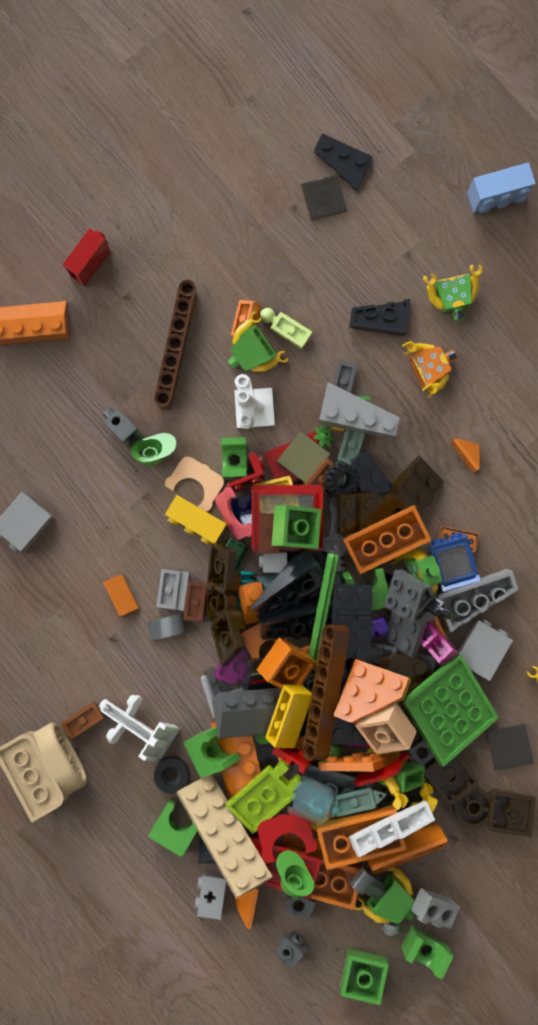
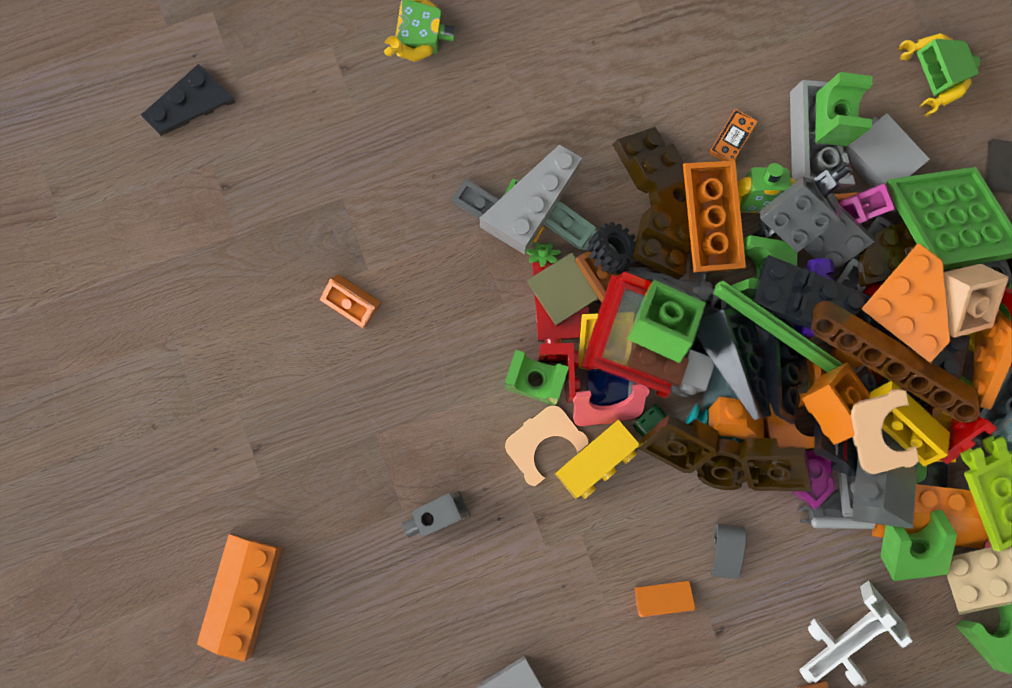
camera: 80 degrees left, 5 degrees down
(87, 256) = (180, 480): red brick -> none
(153, 448) = (481, 482): bright green piece -> none
(171, 786) = (945, 608): black tyre -> none
(172, 589) = (680, 524): light grey plate -> none
(175, 335) = (339, 394): reddish brown beam -> none
(195, 601) = (706, 499): copper plate -> none
(252, 349) = (394, 303): bright green torso -> none
(252, 405) = (470, 330): white piece -> none
(273, 683) = (867, 425): none -> light nougat piece
(286, 327) = (381, 251): yellowish green plate -> none
(323, 197) = (226, 144): clear smoke tile -> none
(371, 475) = (620, 209): black wing -> none
(384, 318) = (416, 125): black wing -> none
(430, 365) = (501, 89): torso -> none
(454, 561) = (762, 144): window -> none
(468, 452) = (629, 84): orange slope -> none
(507, 603) = (841, 96): none -> bright green piece

